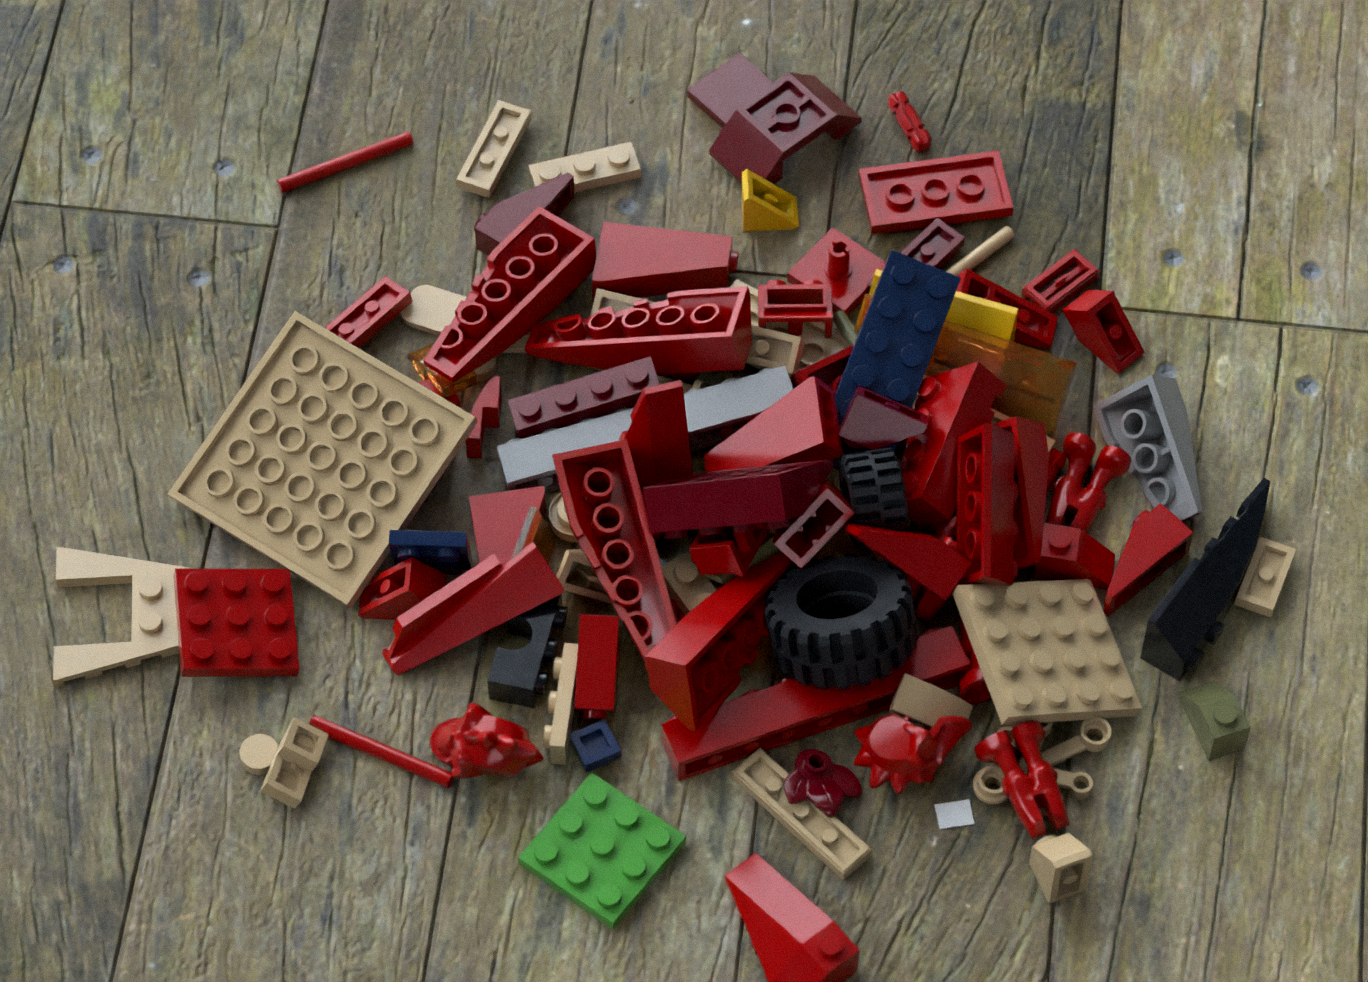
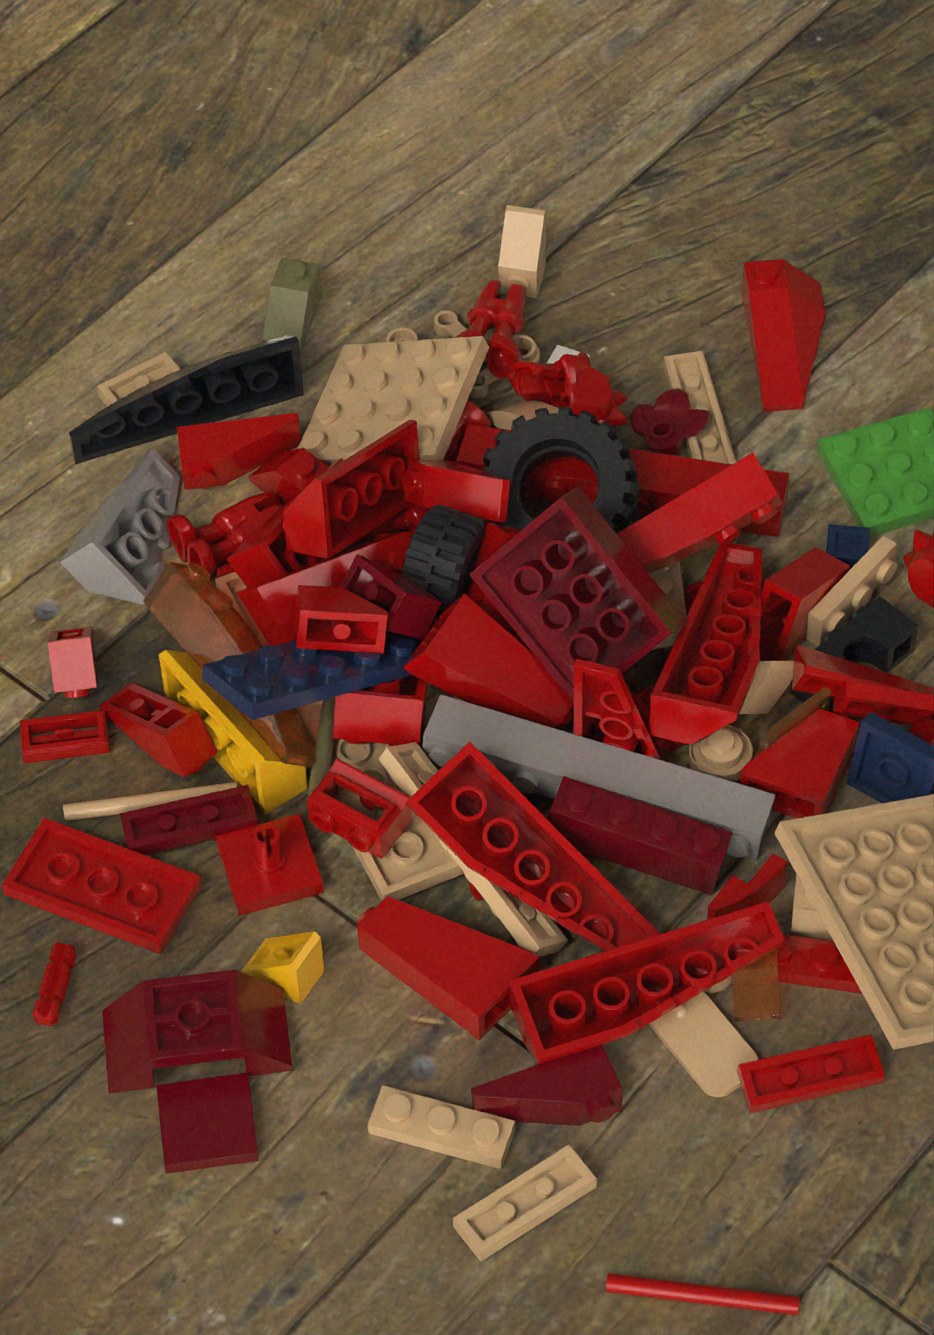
camera: 145 degrees left, 5 degrees down
(904, 371) = (338, 621): none -> red slope

